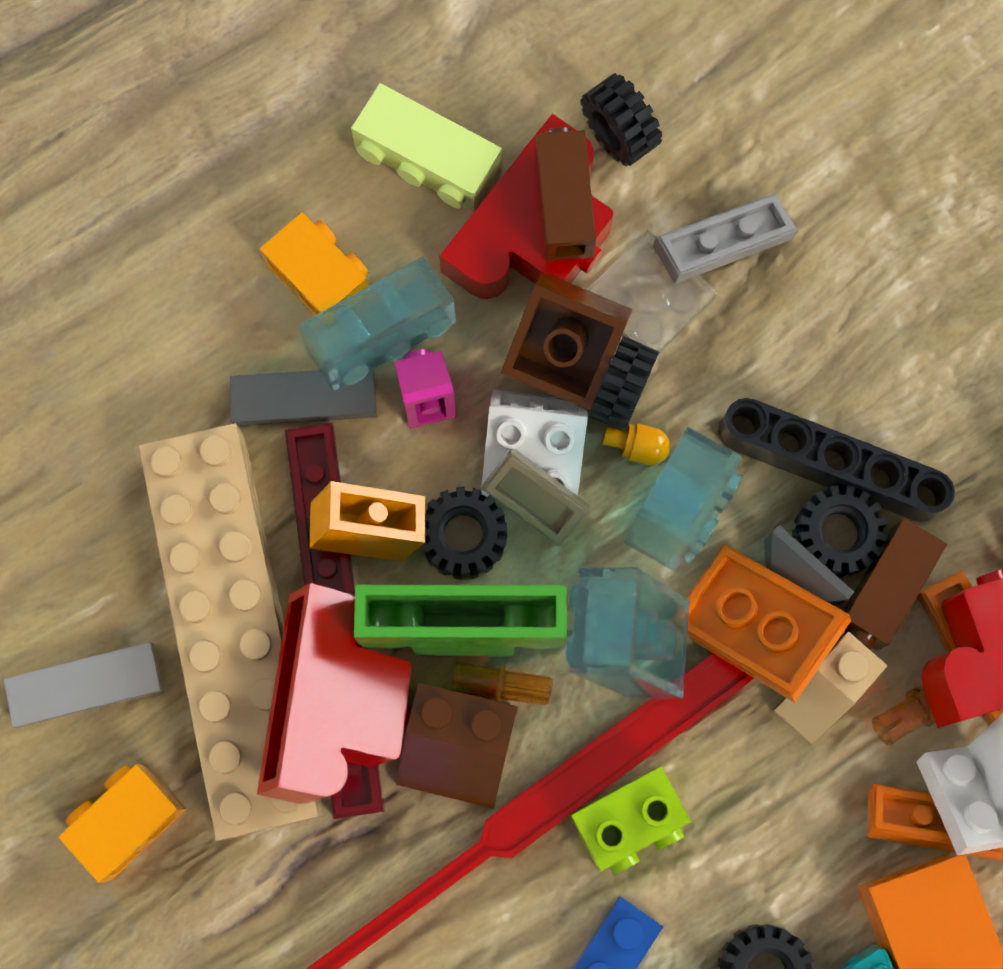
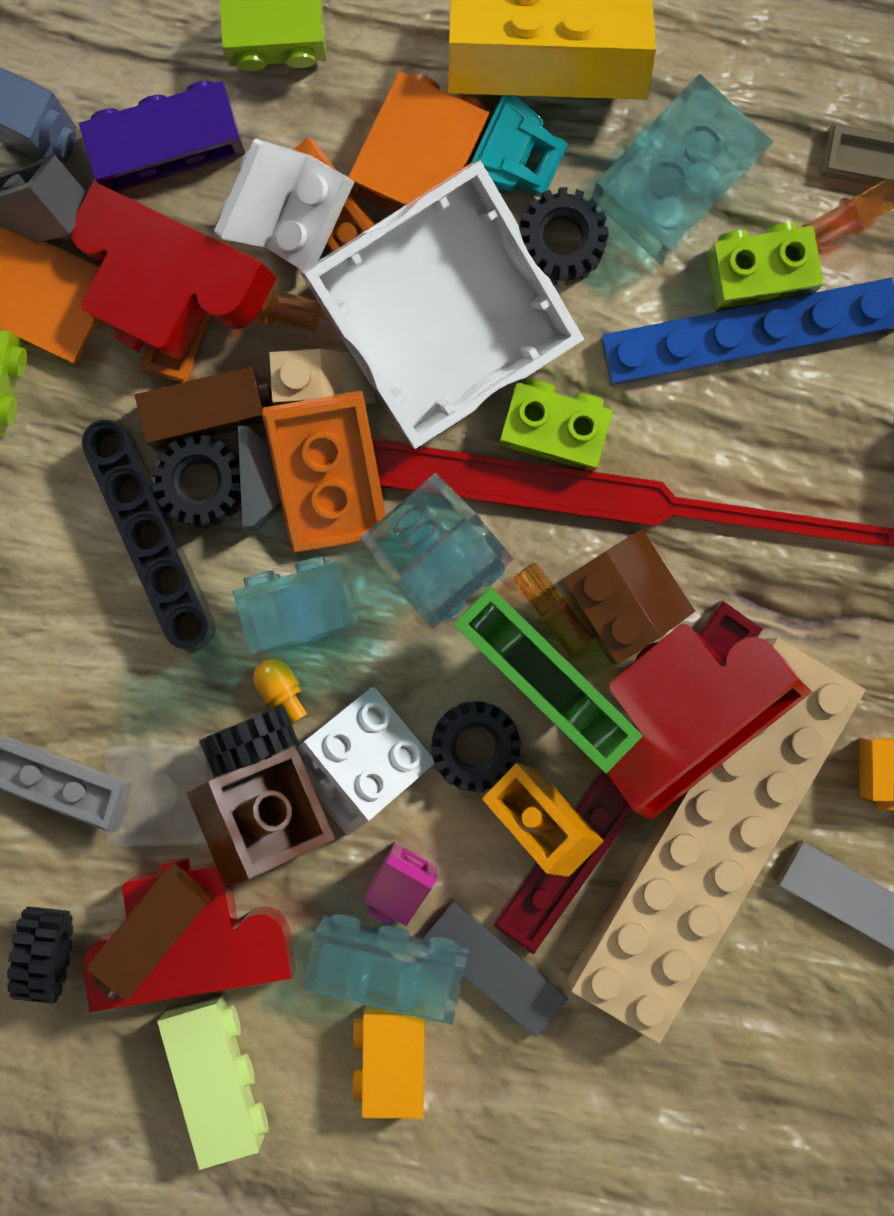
camera: 135 degrees left, 10 degrees up
(535, 497) = (397, 721): dark tan tile -> none
(802, 825) = (443, 304): none -> white tile

